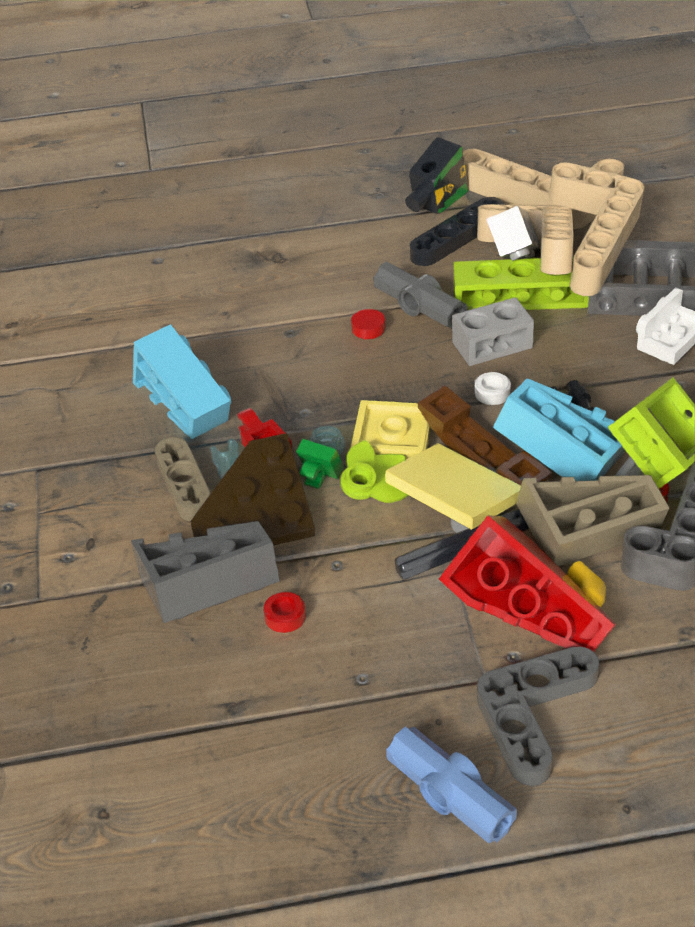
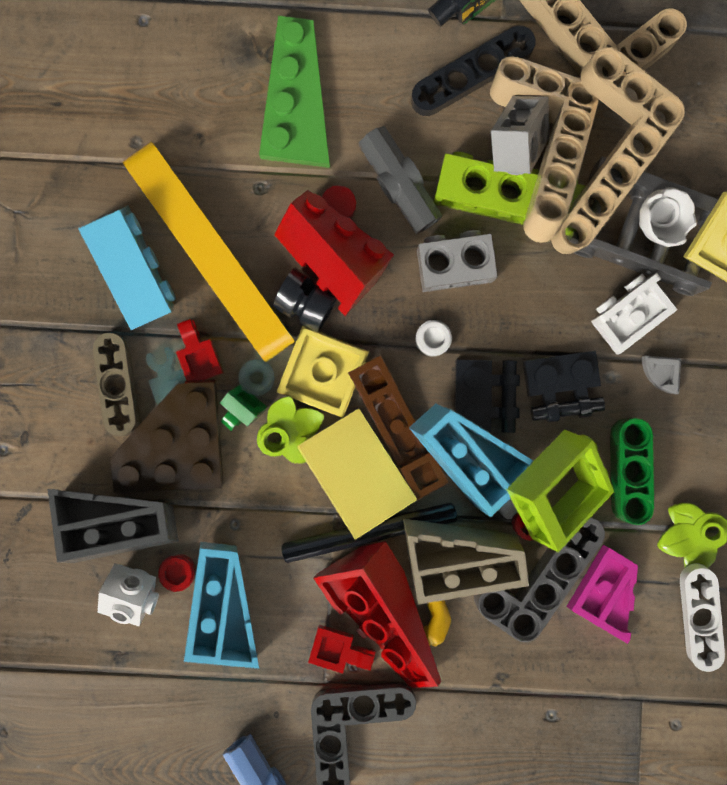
camera: 10 degrees right, 45 degrees up
(221, 626) = (127, 595): none -> white brick
(264, 372) = (208, 251): none -> yellow beam
(308, 276) = (294, 104): none -> bright green wing
(344, 615) = (219, 612): none -> medium azure wedge
(365, 376) = (305, 299): none -> black wheel
(374, 333) = (333, 248): none -> red wedge
(486, 633) = (334, 649): none -> red plate
(625, 388) = (563, 374): none -> black plate
(665, 253) = (667, 216): none -> white hair

